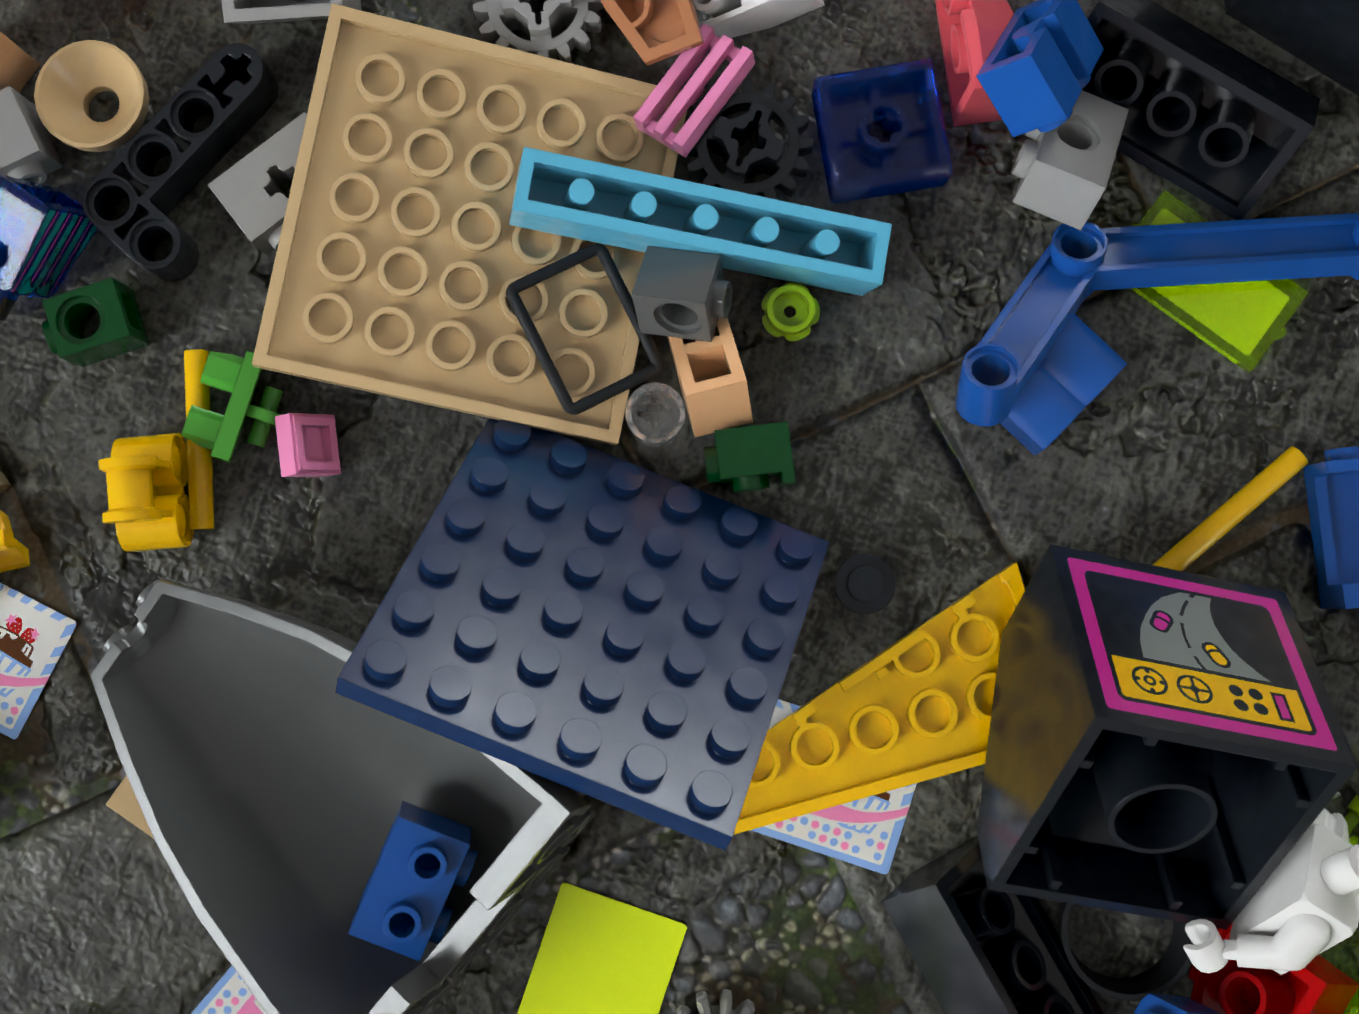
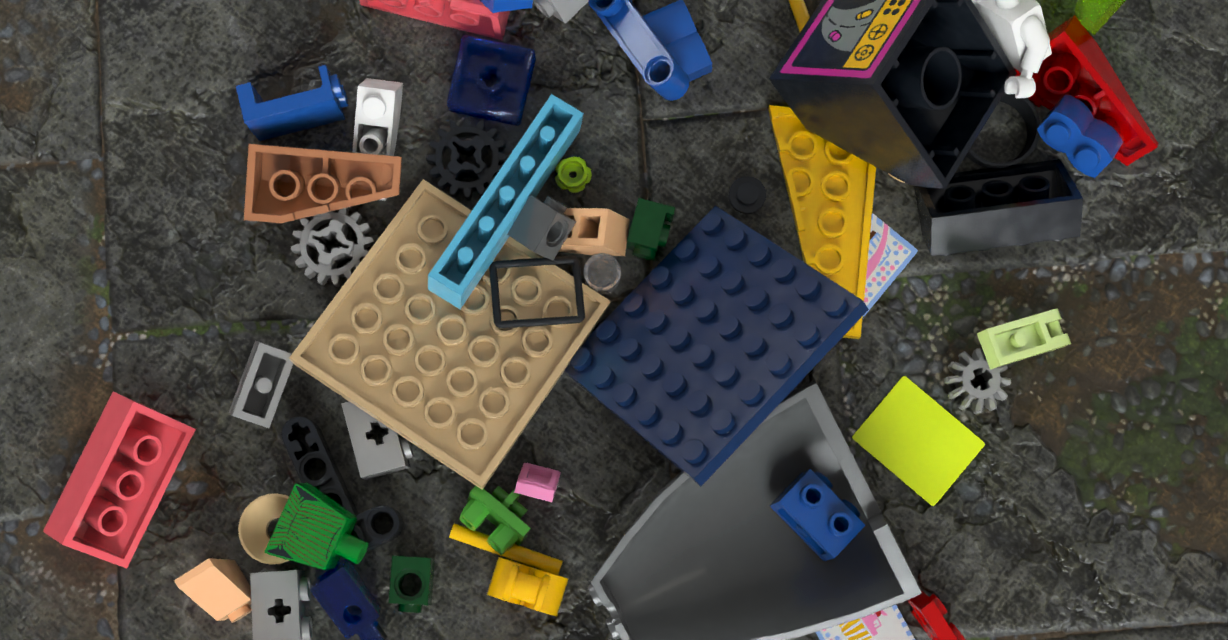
camera: 75 degrees left, 5 degrees down
(94, 148) = (315, 531): none -> green torso
(720, 49) = (407, 148): bright pink tile -> none

